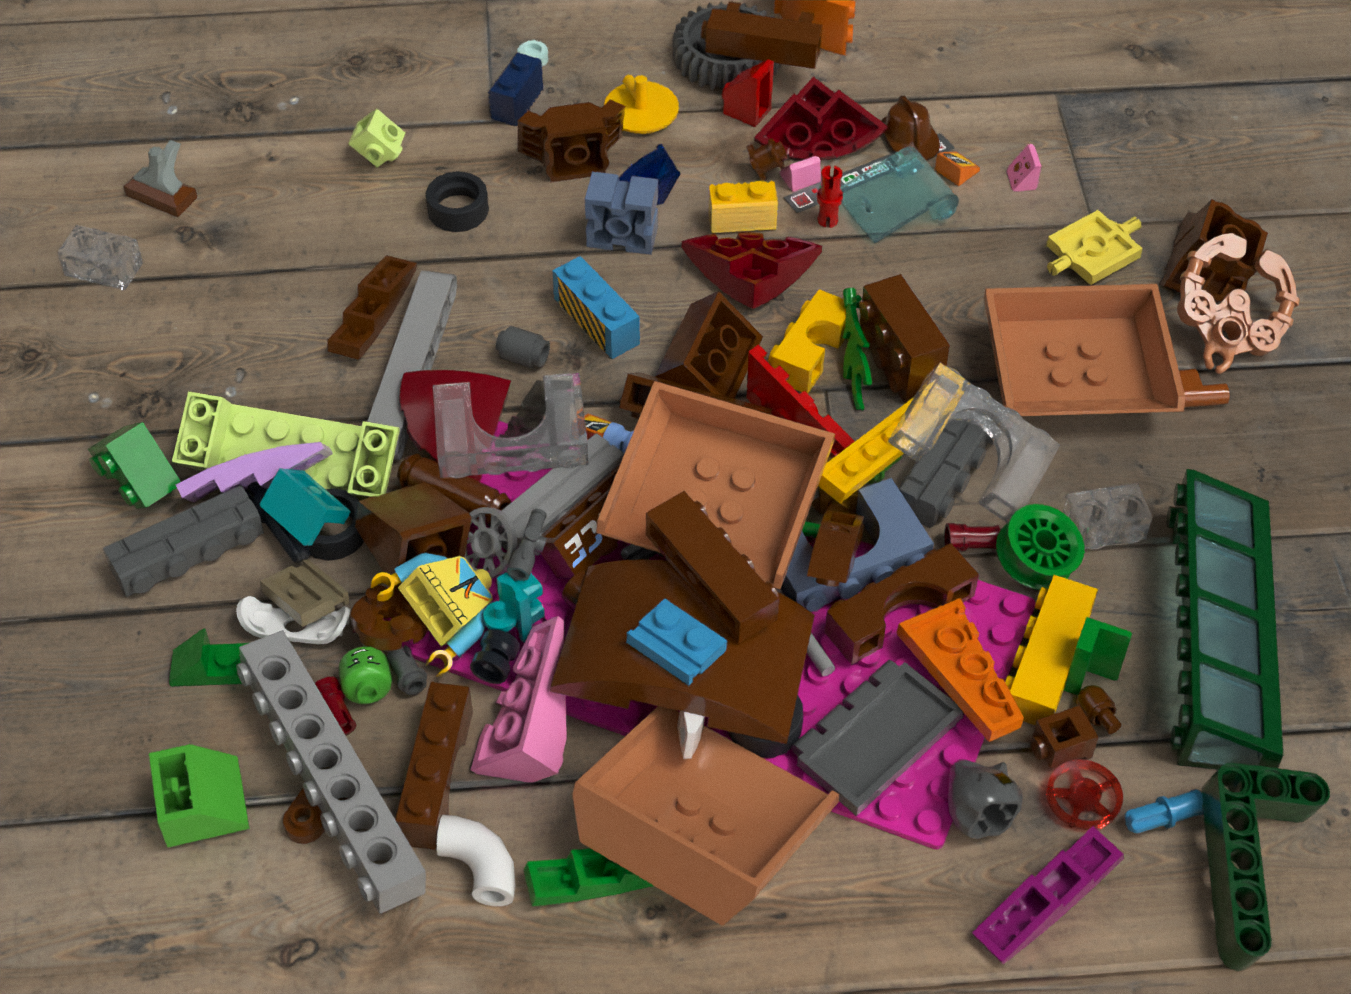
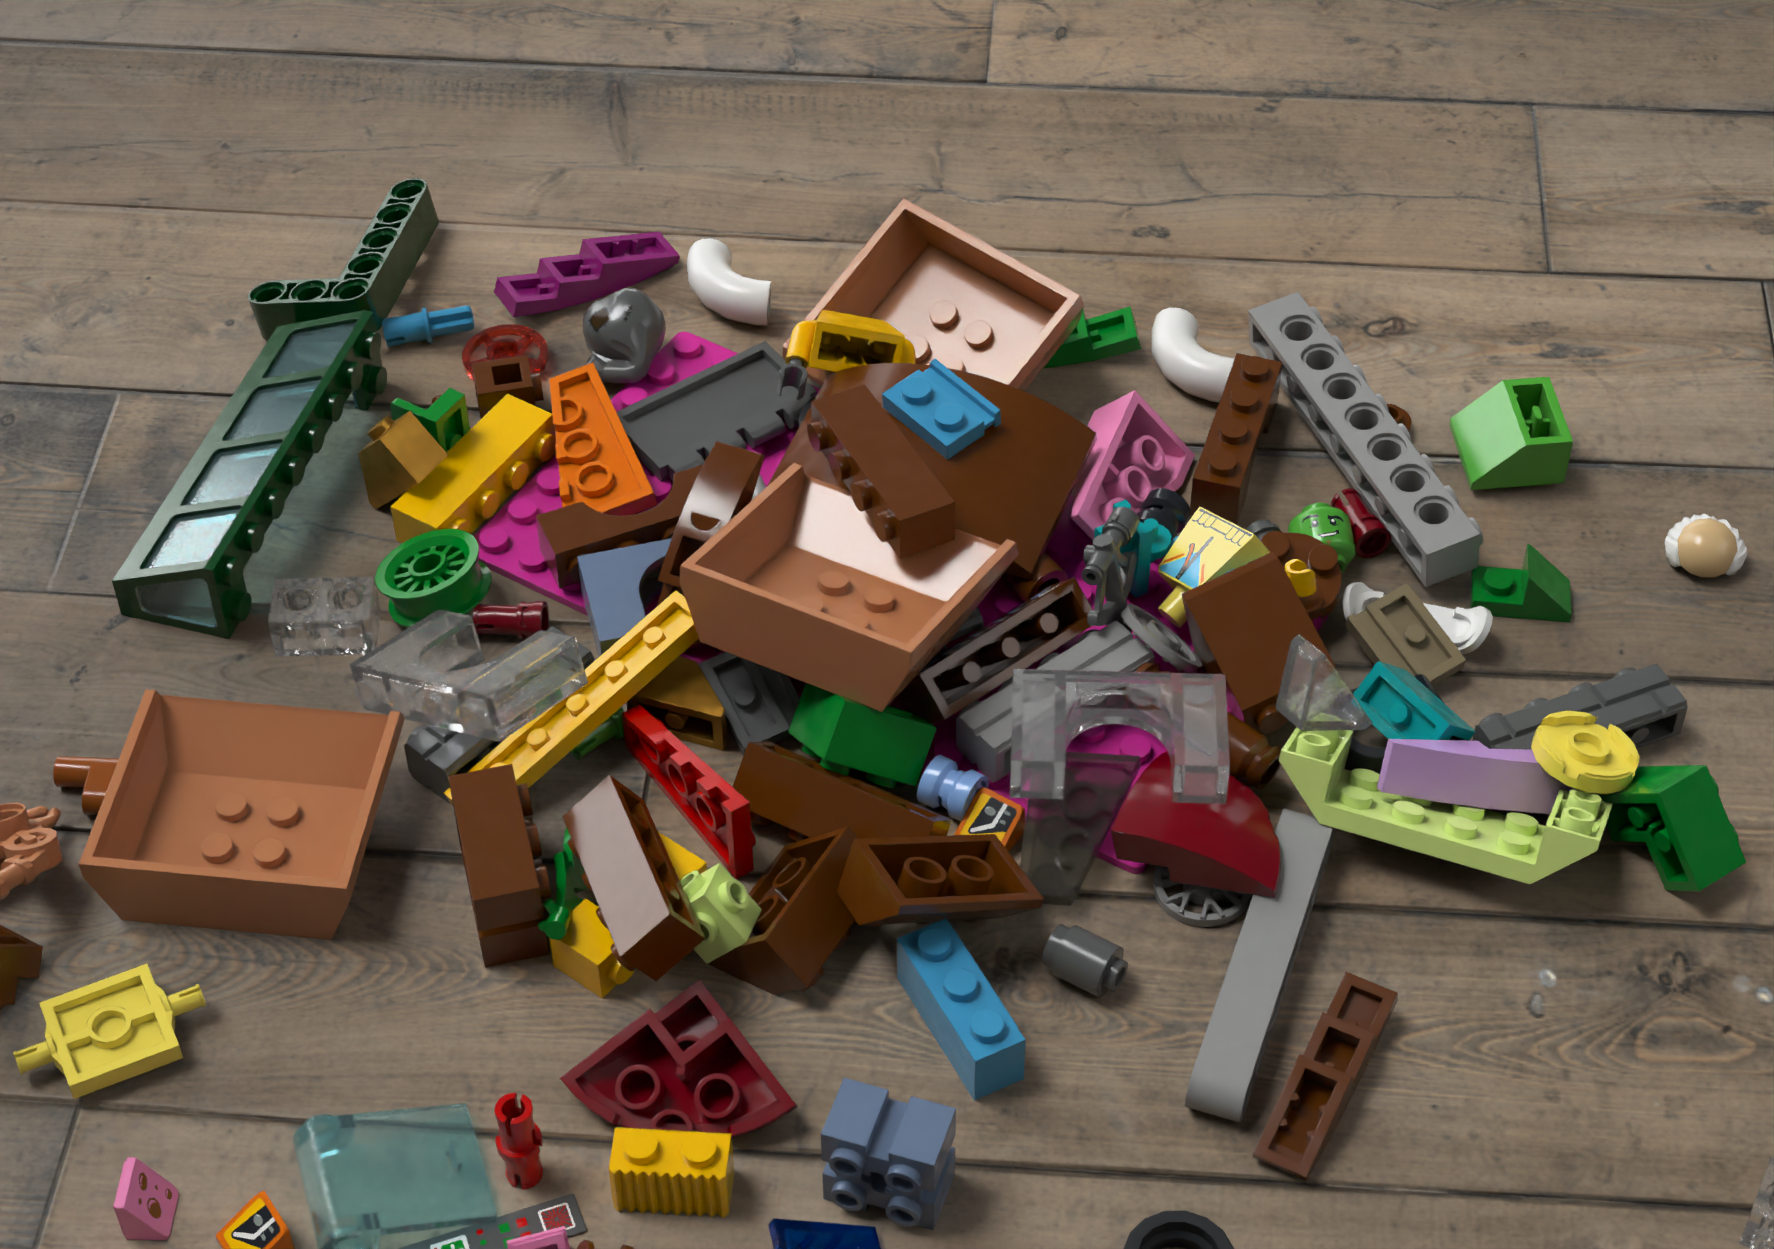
camera: 170 degrees left, 5 degrees down
(53, 720) = (1705, 546): none -> tan hair
(185, 479) = (1585, 753): none -> light yellow tile
(366, 475) = (1315, 694): none -> clear slope
(617, 338) = (934, 880): none -> reddish brown slope
(757, 322) = (721, 910): none -> yellowish green brick
(774, 769) = (840, 343): none -> yellow torso
(810, 310) = (632, 879): none -> brick
(918, 882) = (722, 288): none -> white cylinder
(1106, 603) = (397, 458): none -> pearl gold slope

